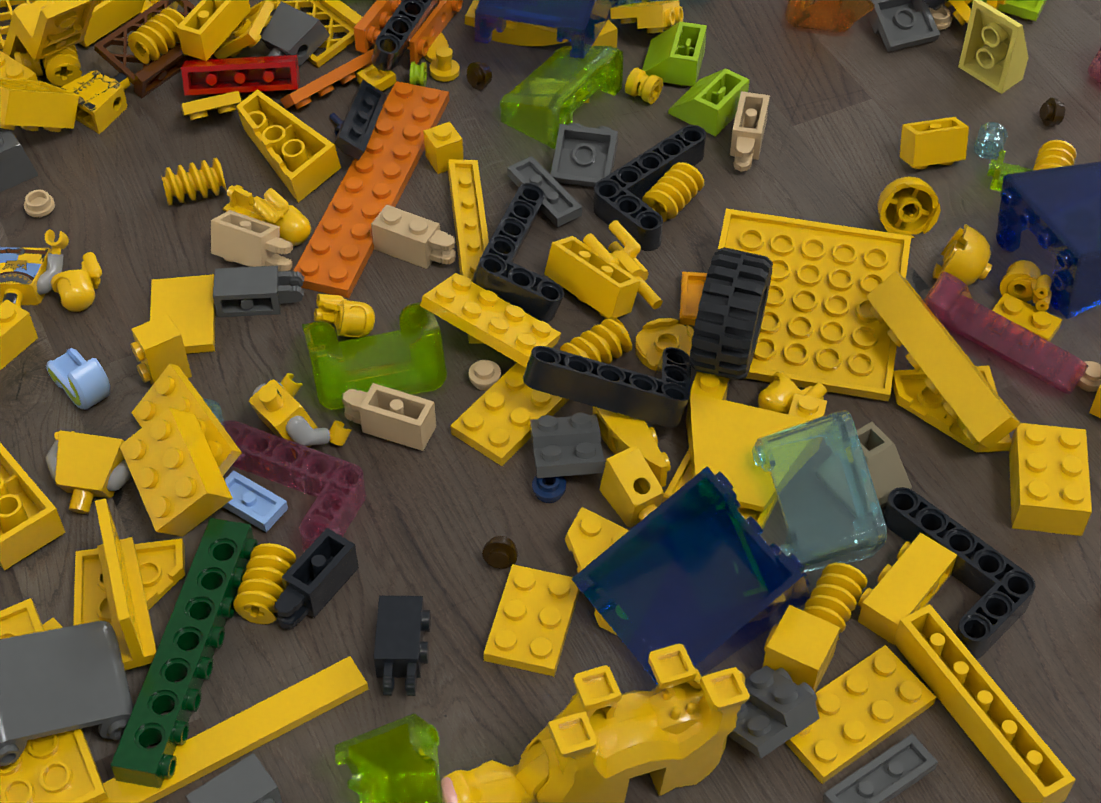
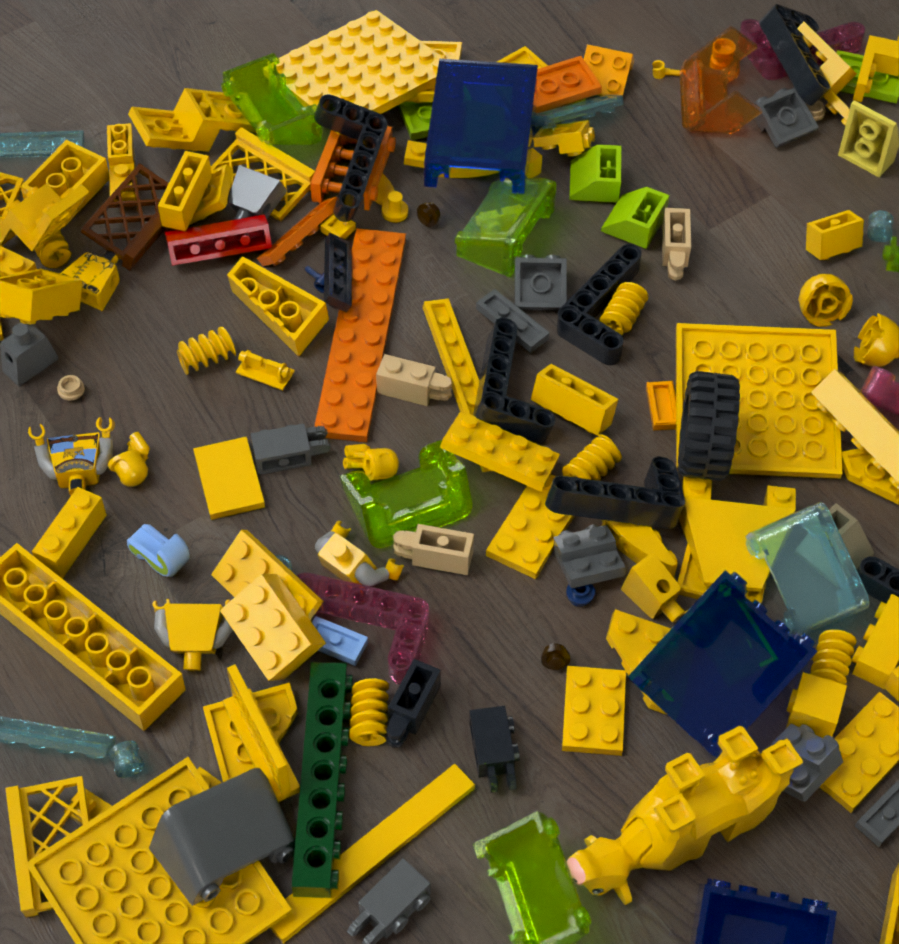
camera: 10 degrees left, 5 degrees up
(26, 60) = (20, 248): yellow wheel -> none
(156, 36) = (137, 213): yellow piece -> none
(156, 346) = (225, 517): yellow brick -> none
(223, 103) = (193, 276): yellow plate -> none
(249, 241) = (272, 403): tan hinge -> none
(277, 211) = (297, 377): yellow piece -> none
(418, 73) = (374, 219): lime bush -> none
(441, 145) = (415, 289): yellow brick -> none
(484, 374) = (502, 499): tan plate -> none
(625, 259) = (598, 378): yellow plant -> none
(643, 85) = (575, 207): yellow wheel -> none
(661, 335) = (642, 446): yellow tile -> none
(780, 393) = (754, 486): yellow piece -> none

